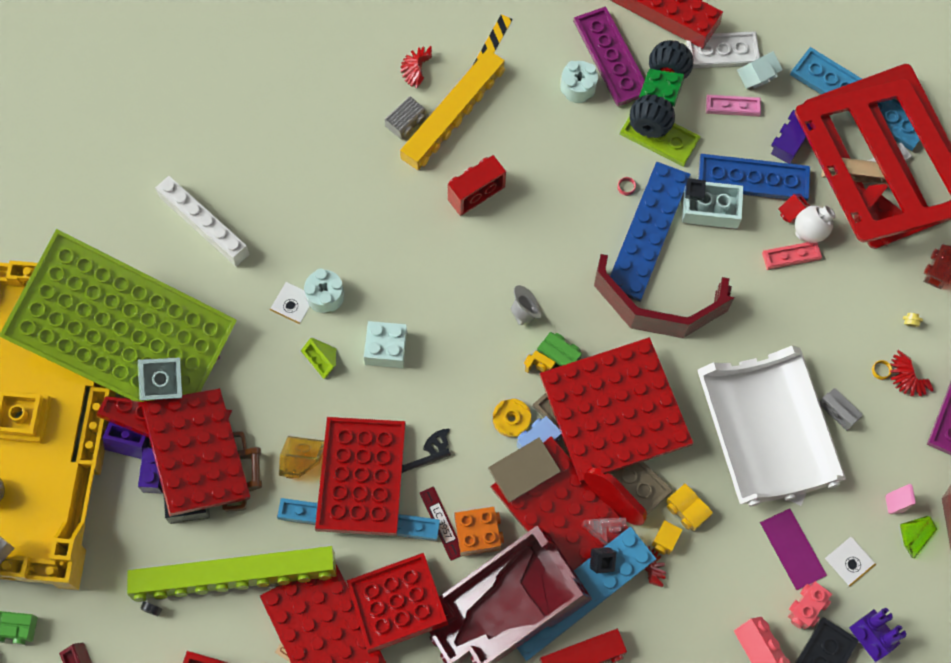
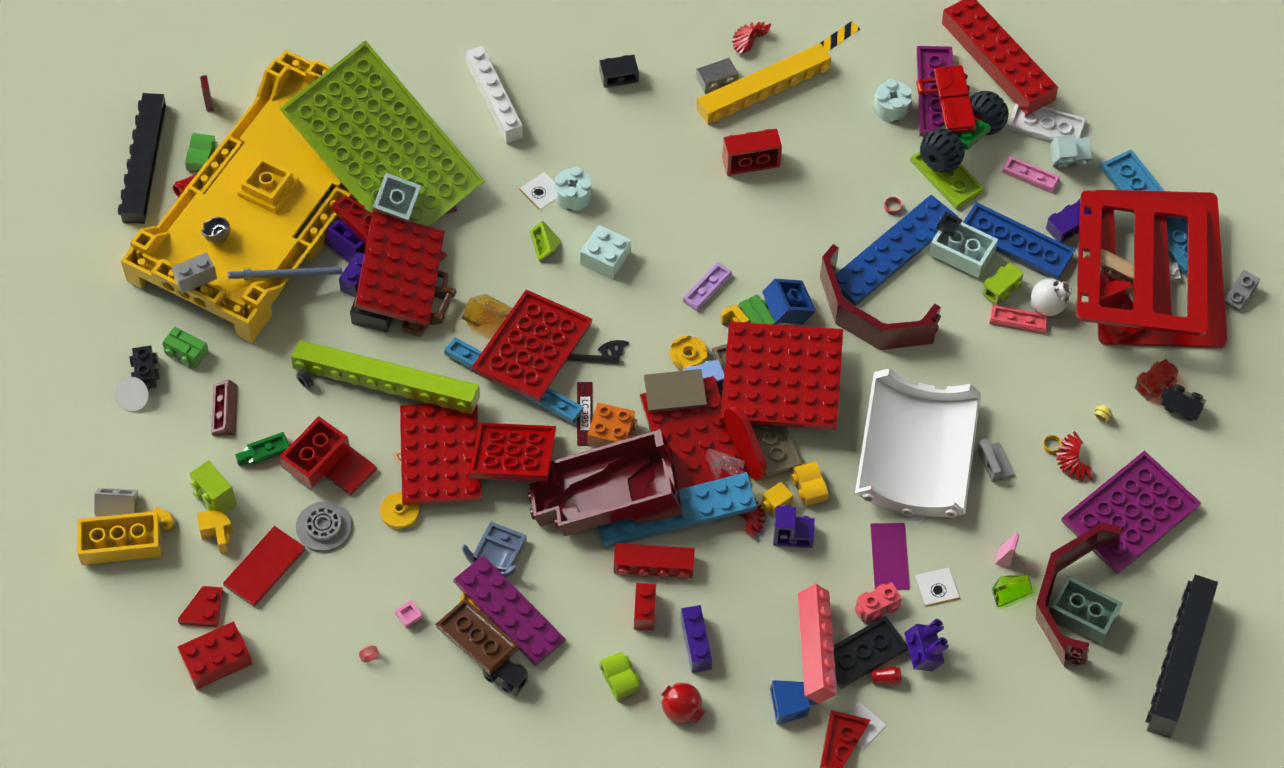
camera: 25 degrees right, 10 degrees down
(44, 525) = (247, 274): none -> sand blue bar
(311, 149) = (619, 70): none -> black brick
(496, 340) = (707, 286): none -> lavender tile
(525, 305) = (746, 266): light grey piece -> none
(583, 327) = (789, 301): none -> blue brick
(602, 560) = (707, 486): black slope -> none
(637, 58) = (953, 97): none -> red piece
(697, 563) = (792, 530): none -> dark purple brick
(766, 221) = (1003, 283): none -> lime brick
(793, 207) = (1038, 274): red brick -> none

